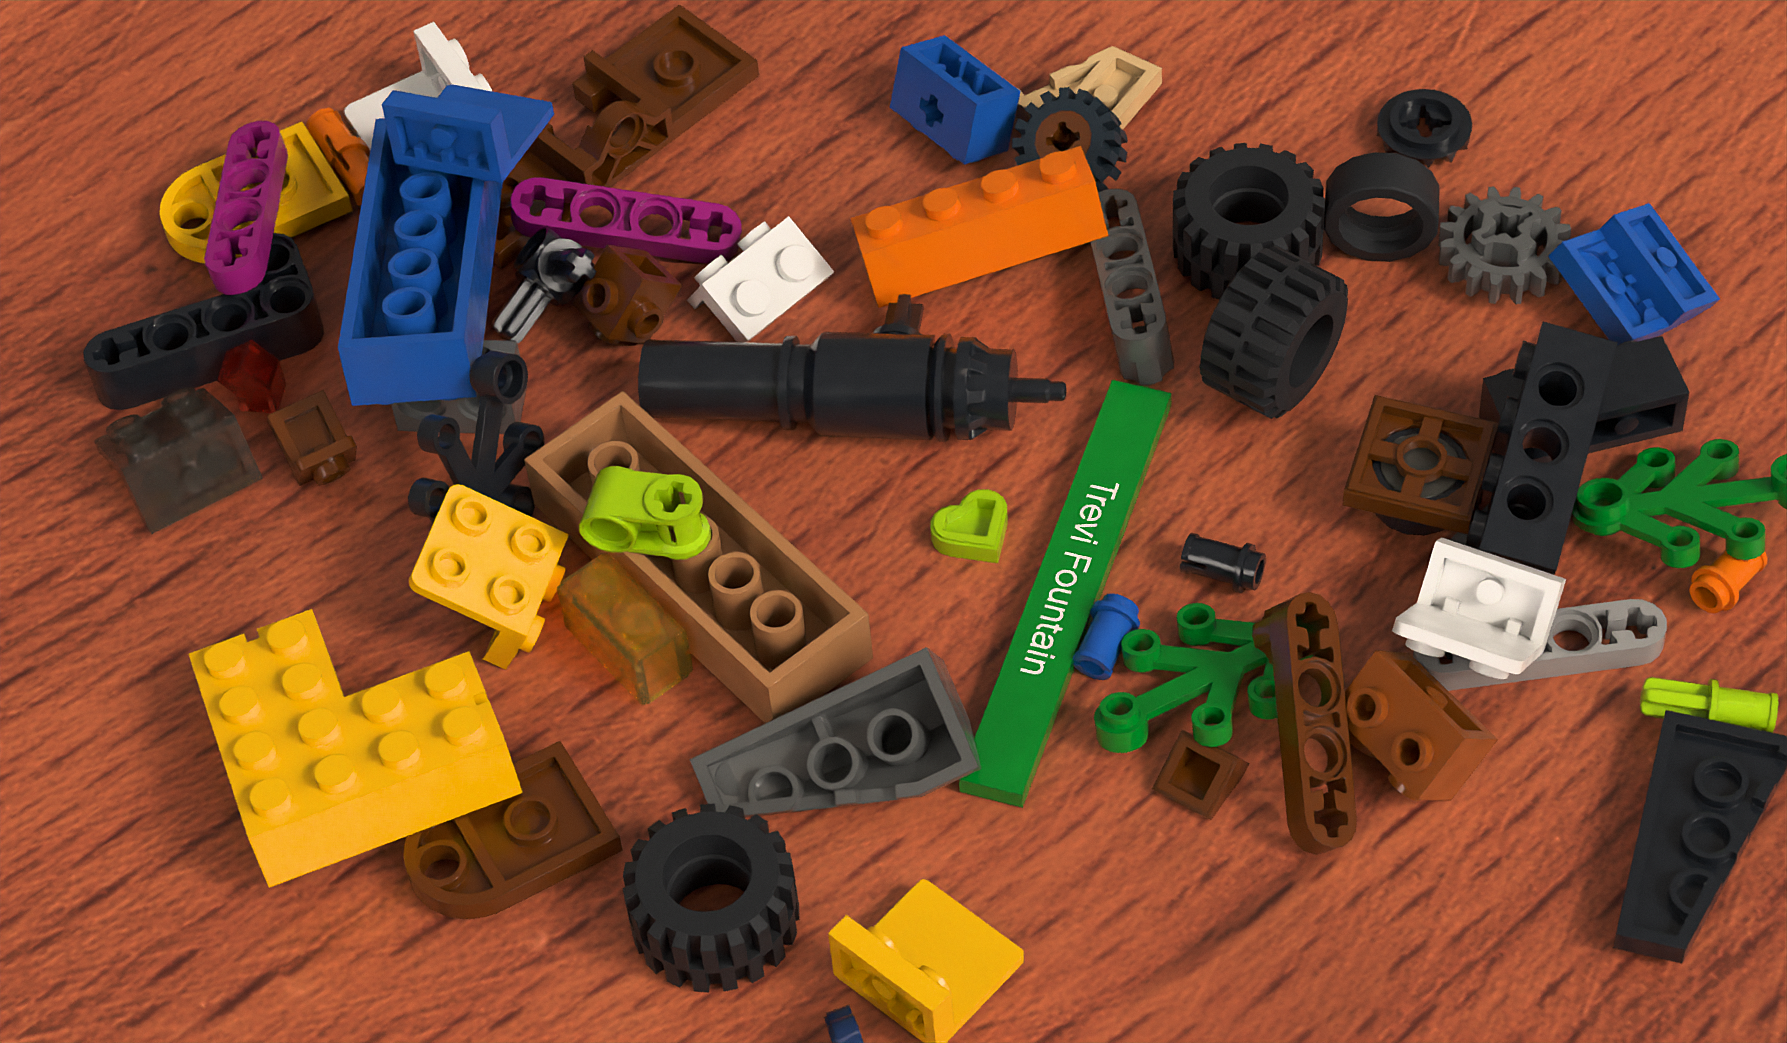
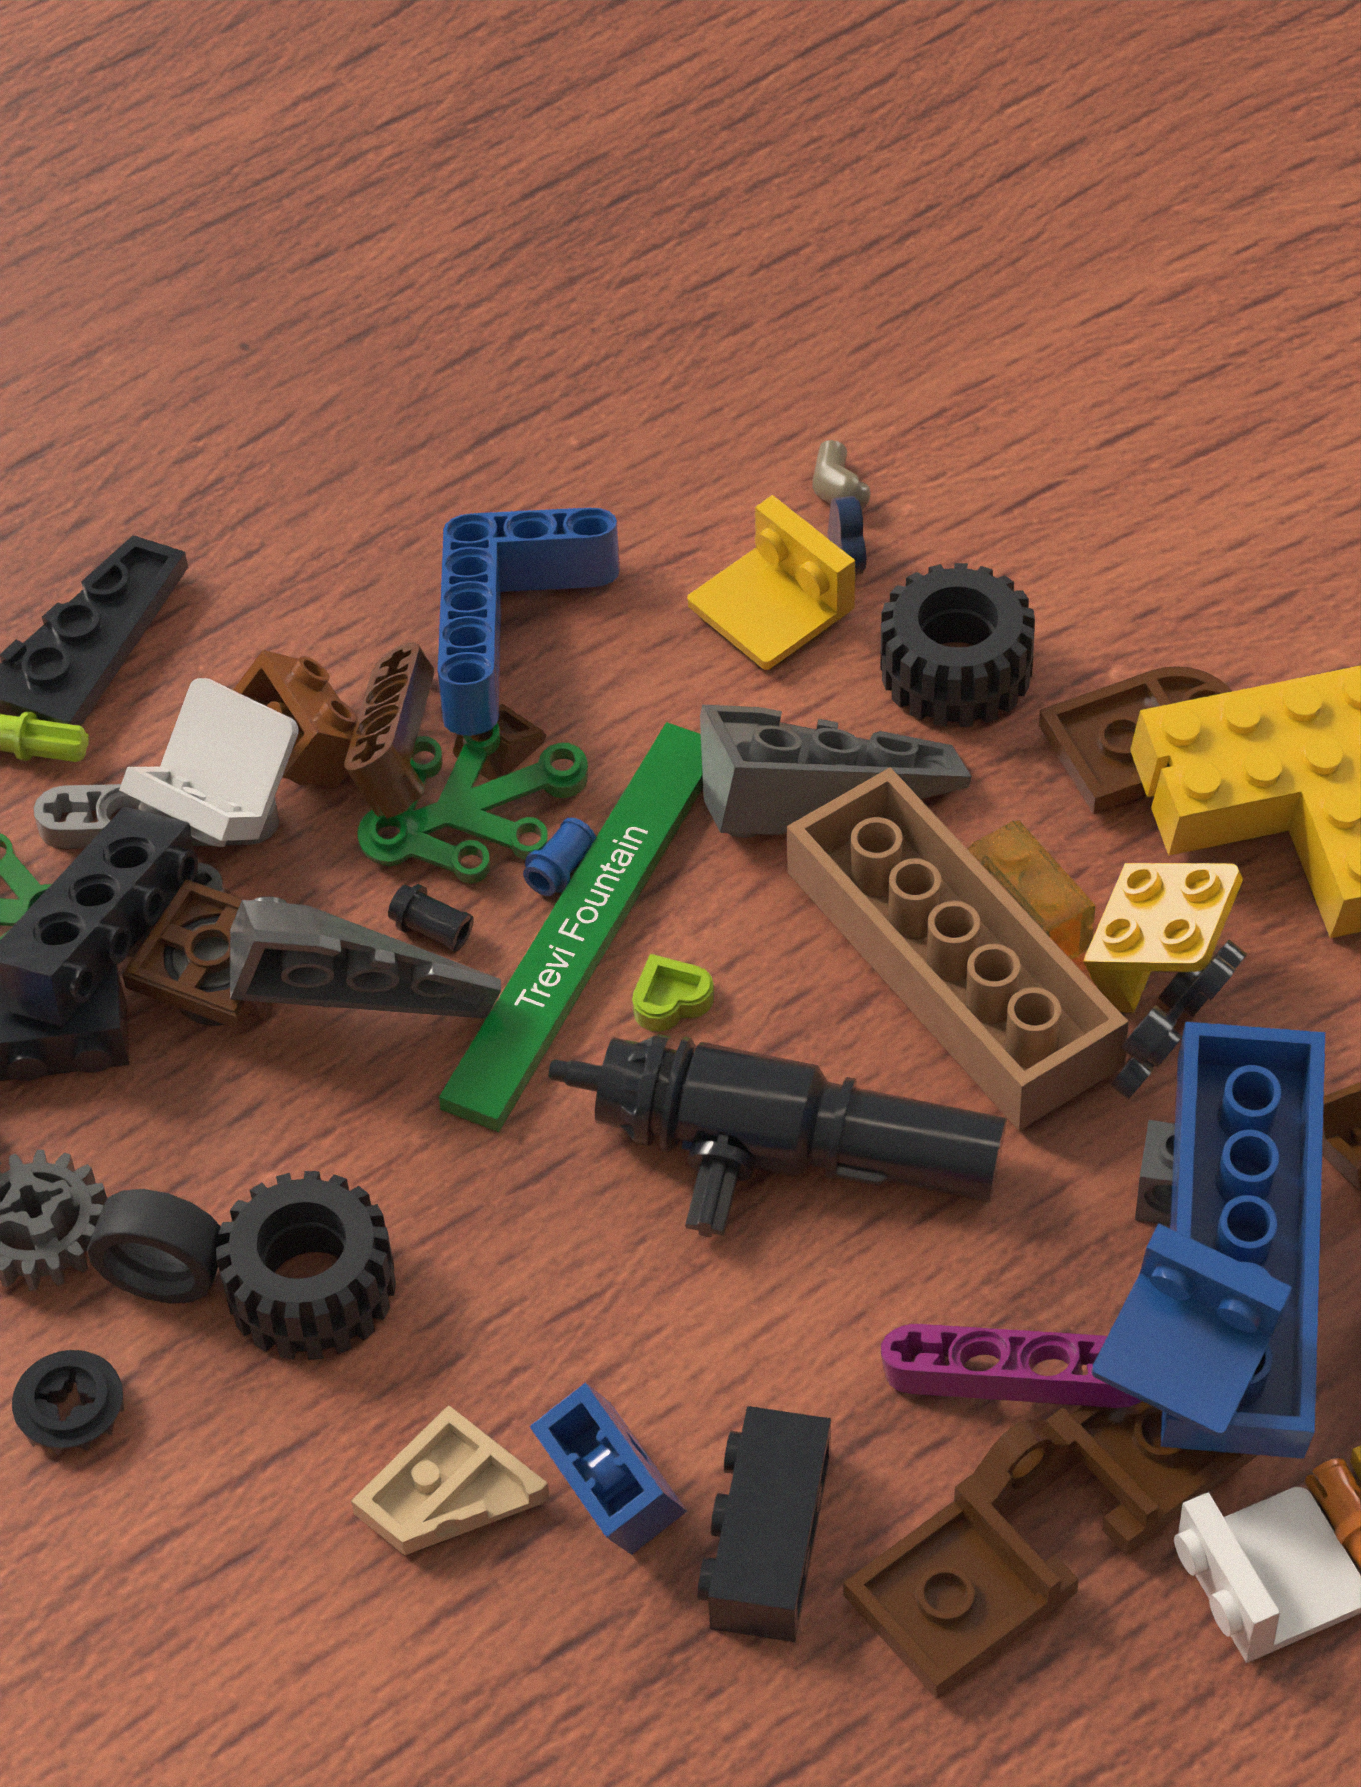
camera: 175 degrees left, 0 degrees up
(548, 273) = (1092, 1293): black axle -> none
(626, 295) = (1017, 1255): reddish brown brick -> none
(640, 508) = (1005, 913): lime piece -> none
(762, 281) = (868, 1290): white bracket -> none
(822, 98) = (766, 1523): none -> black brick
(980, 226) = (608, 1278): orange brick -> none
(1088, 126) = (483, 1387): black wheel -> none
(1141, 351) = (459, 1229): dark grey beam -> none
(1245, 872) = (498, 555): none -> blue beam
(1273, 331) = (317, 1085): black tyre -> none
(1289, 424) = (323, 960): none -> dark grey wedge

